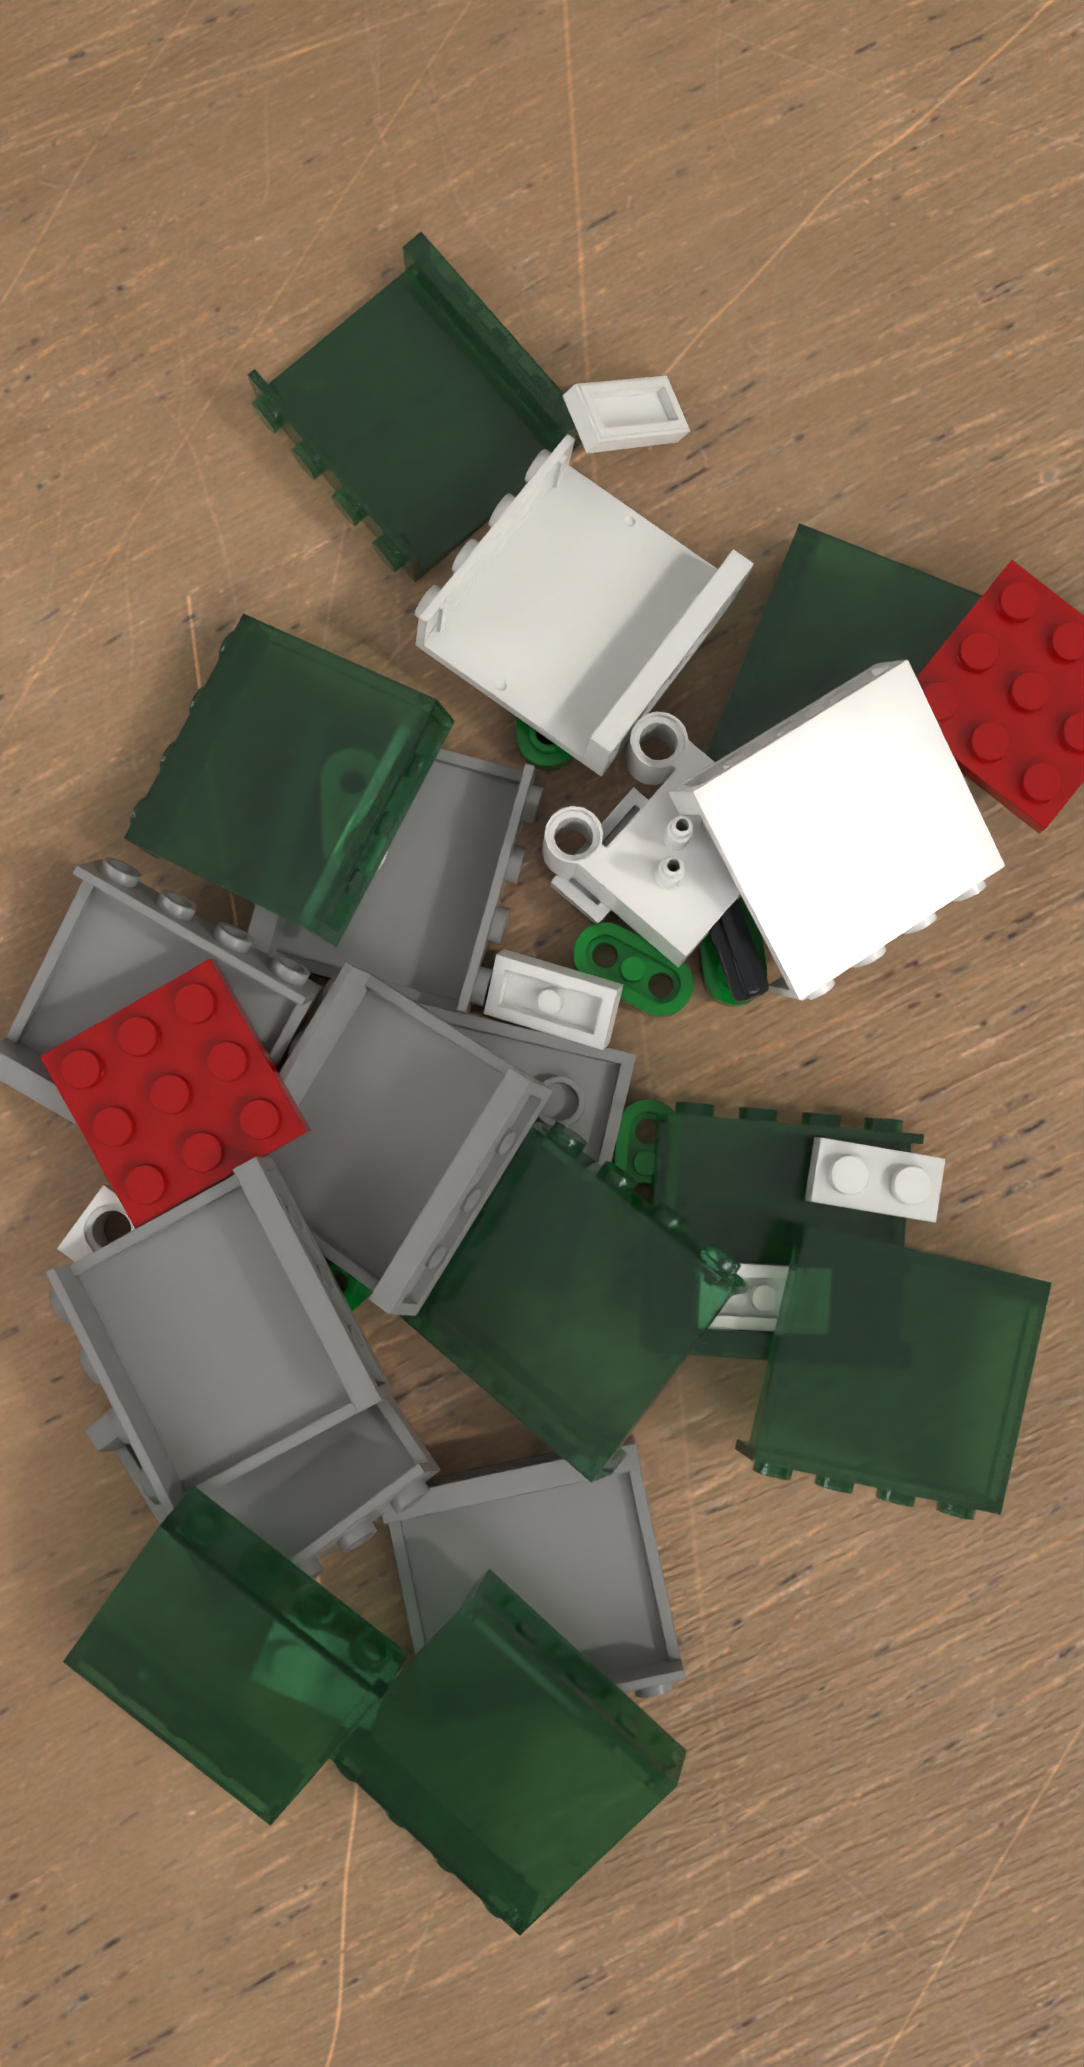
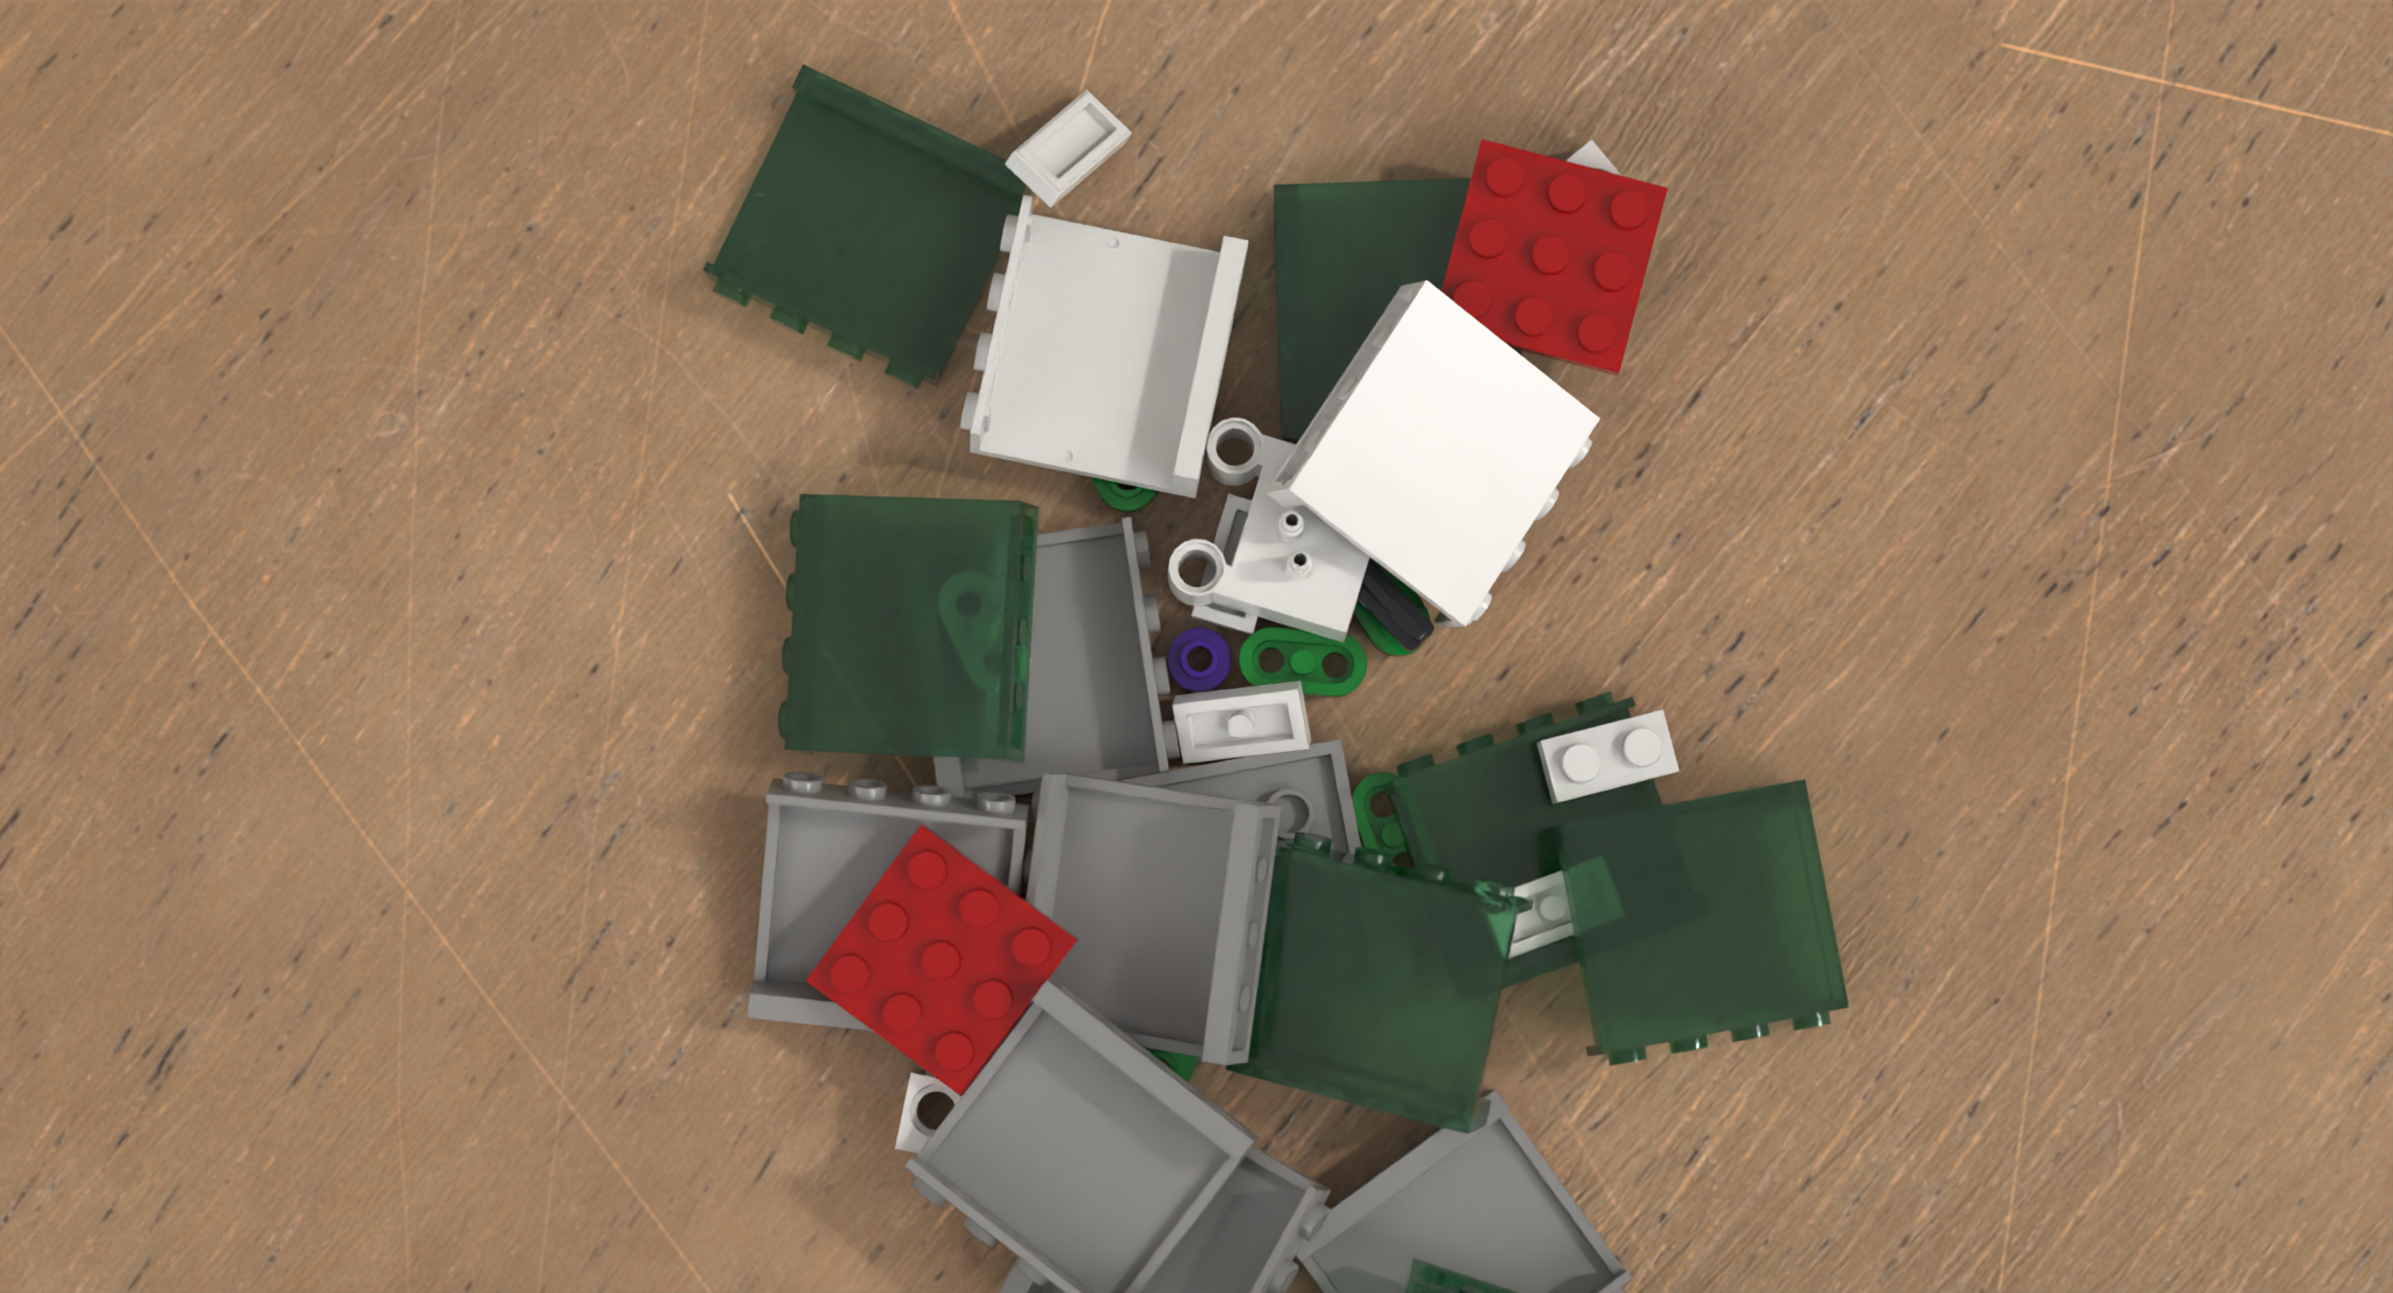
camera: 25 degrees left, 0 degrees up
(540, 946) = (1192, 679): none -> dark purple plate

